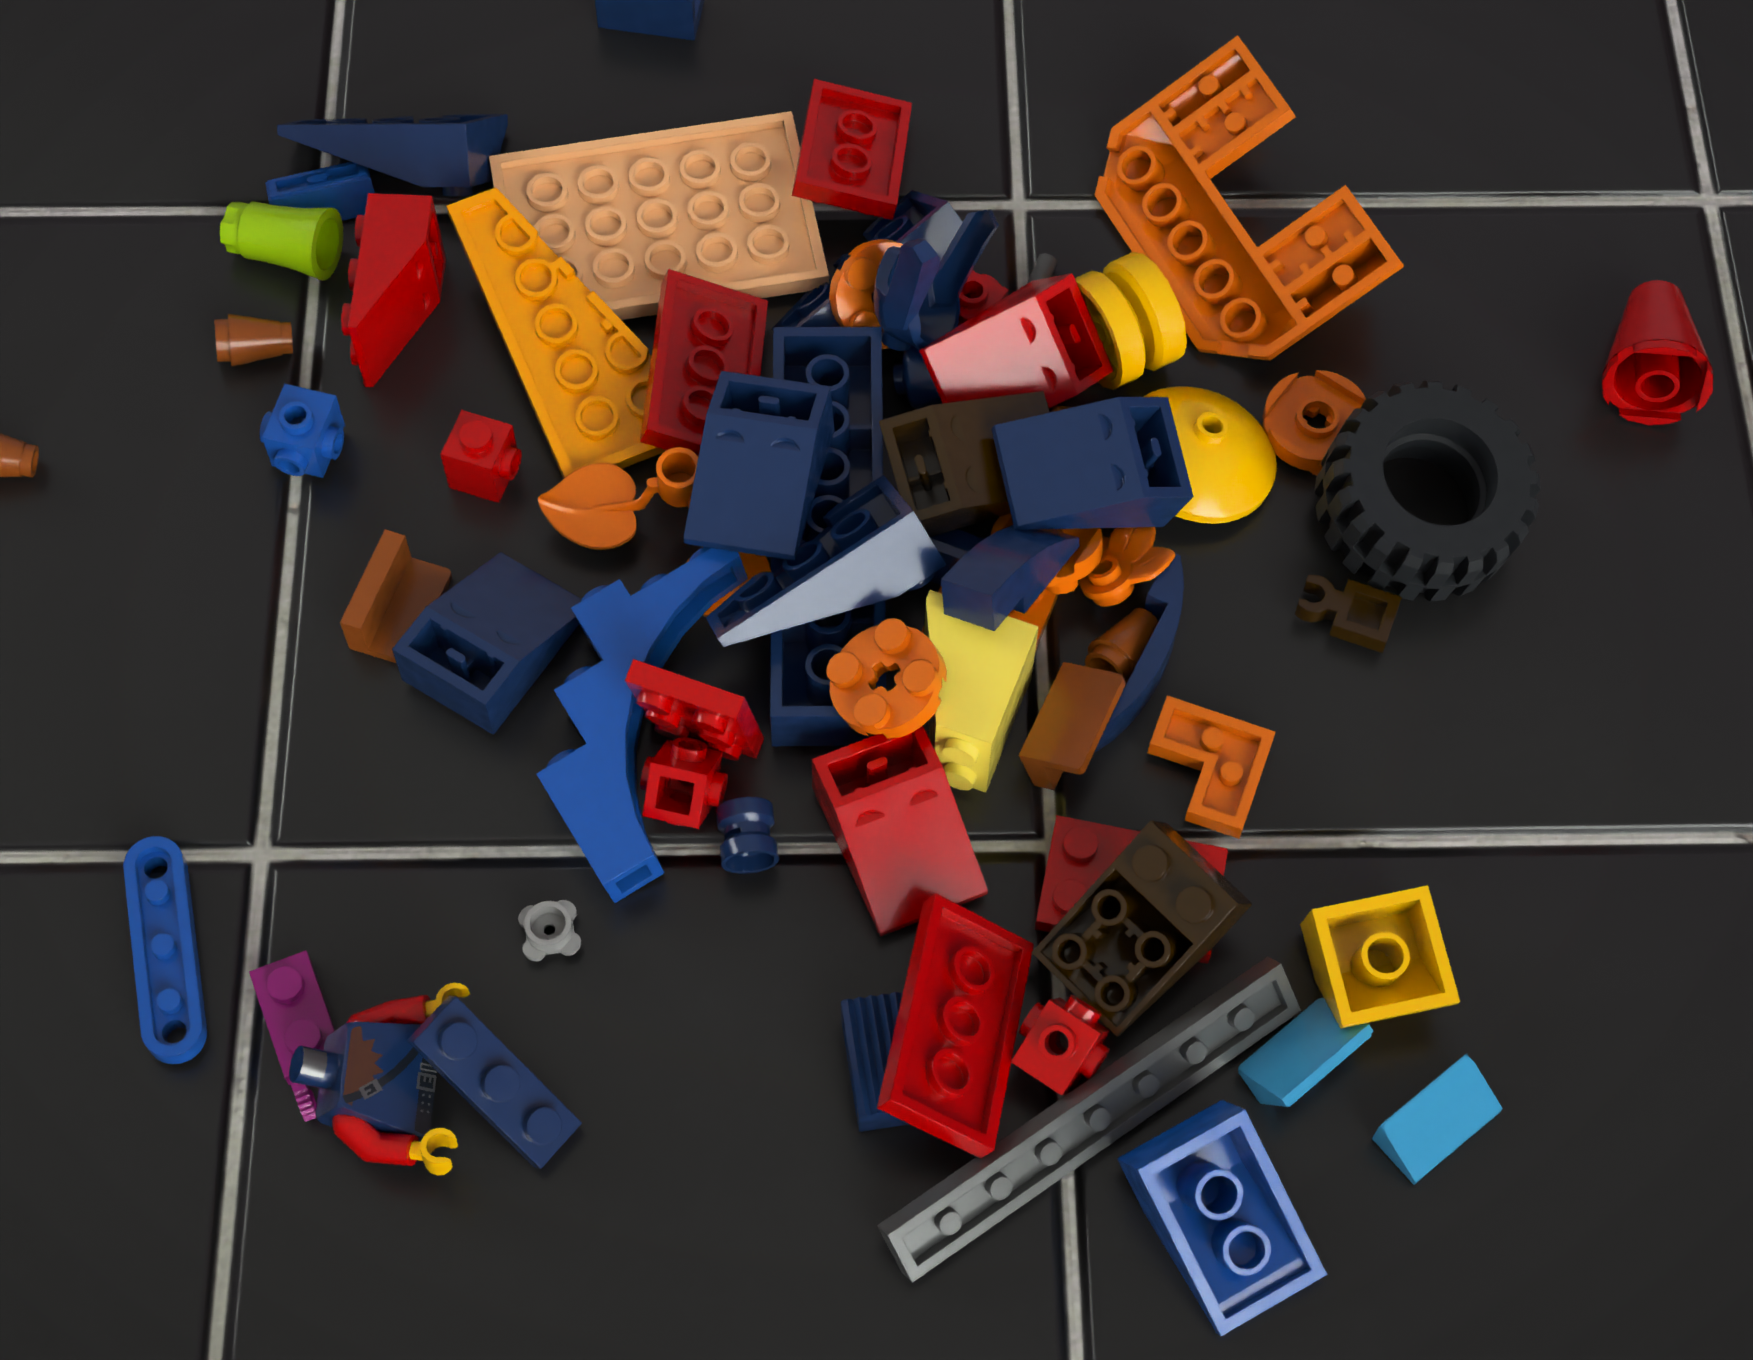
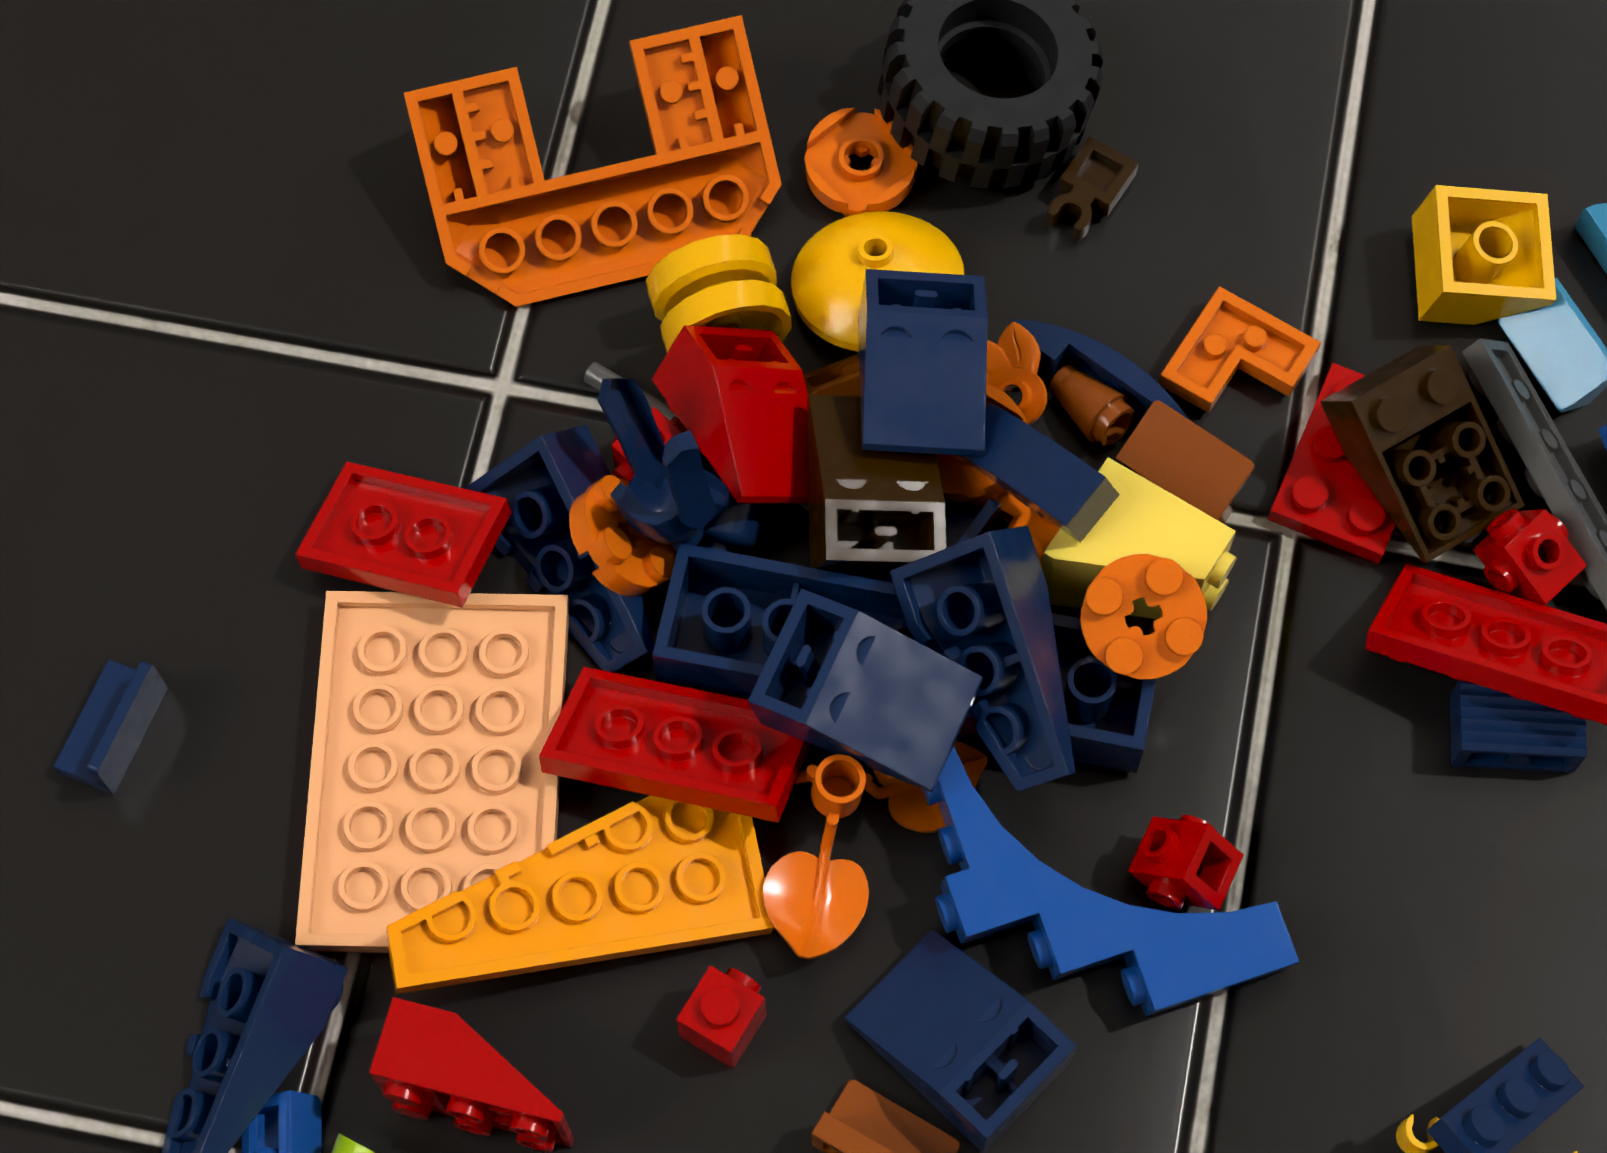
camera: 75 degrees left, 5 degrees up
(544, 914) = (1329, 1023): light grey plate -> none
(695, 709) = (1128, 823): red plate -> none
(747, 835) = (1248, 812): dark blue wheel -> none
(897, 826) = (1272, 663): red slope -> none

